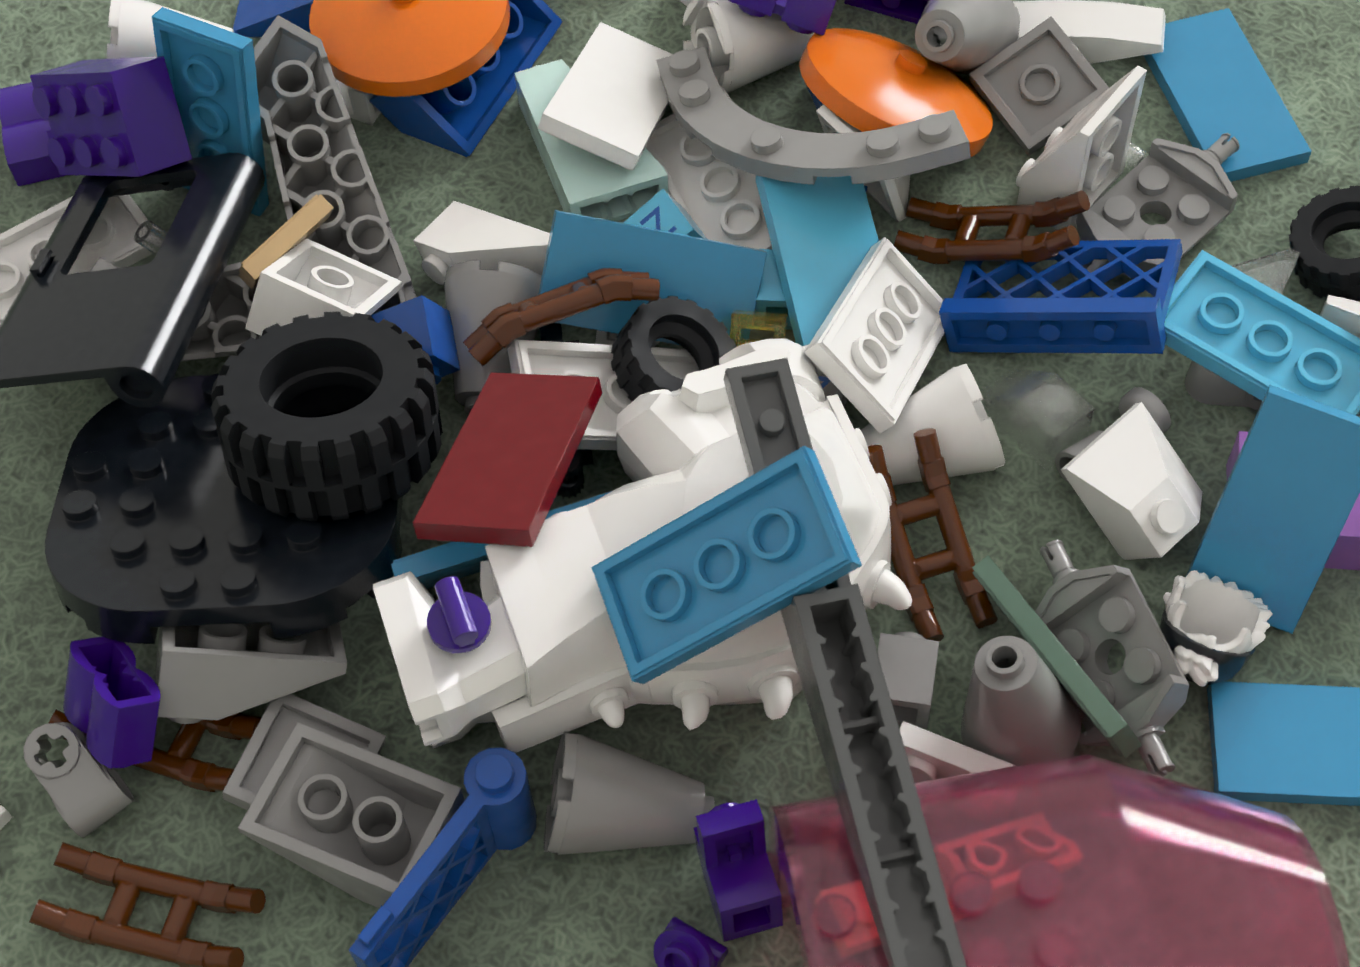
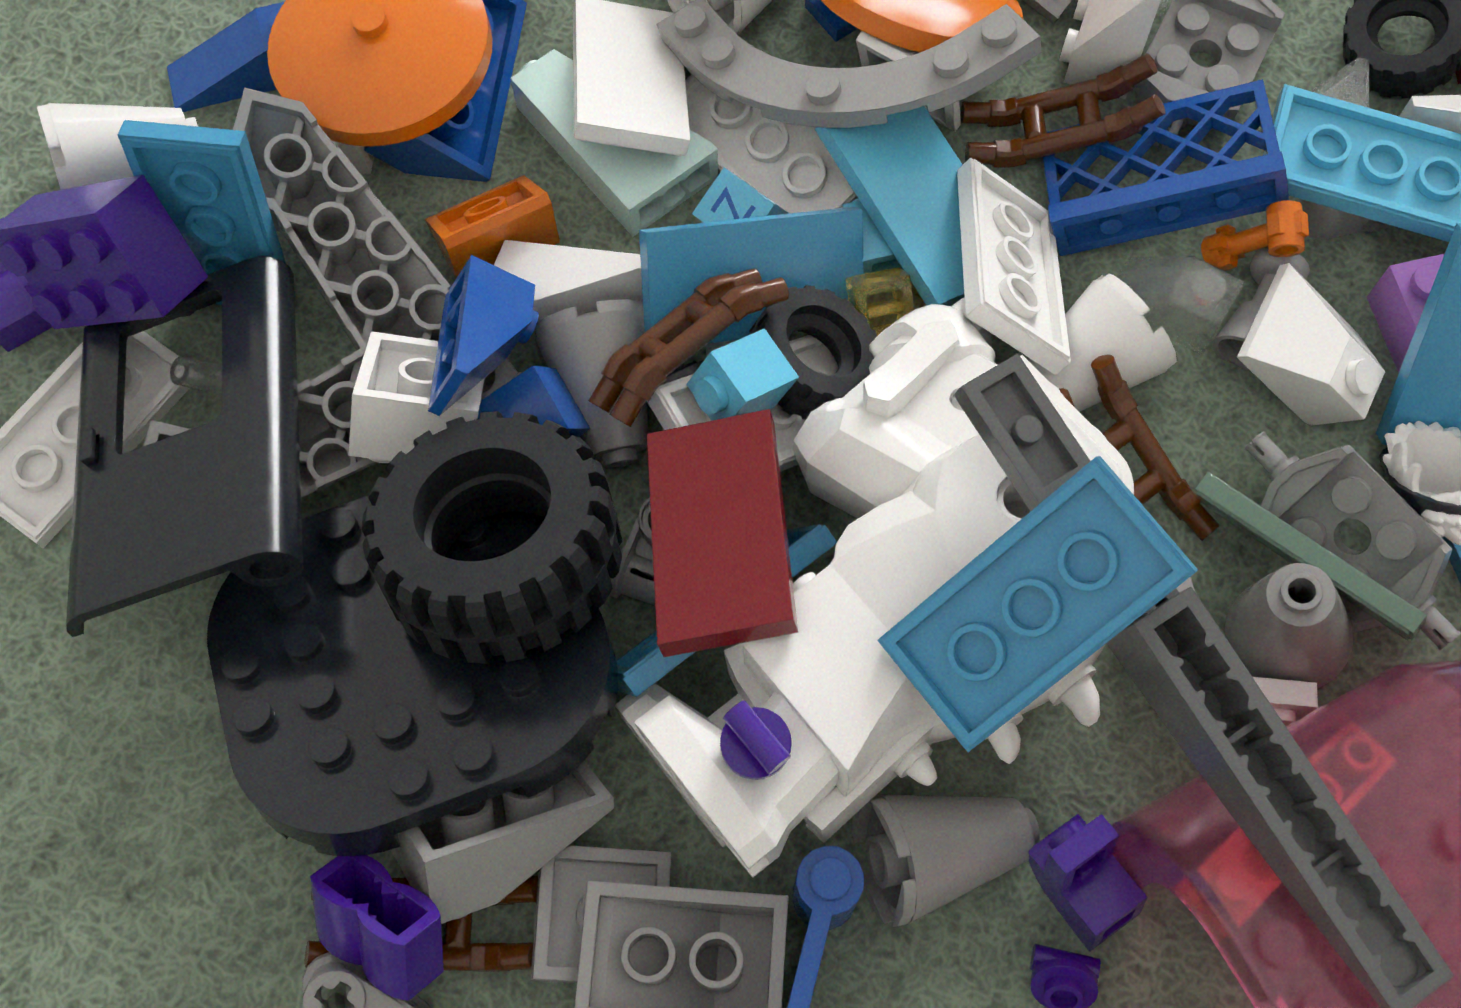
camera: 20 degrees left, 10 degrees up
(288, 236) = (353, 344): tan tile -> none
(394, 258) = (479, 328): none -> blue slope
(430, 191) = (483, 223): none -> orange slope
(594, 349) = (742, 377): none -> medium azure brick
(1144, 378) = (1282, 235): none -> orange bar

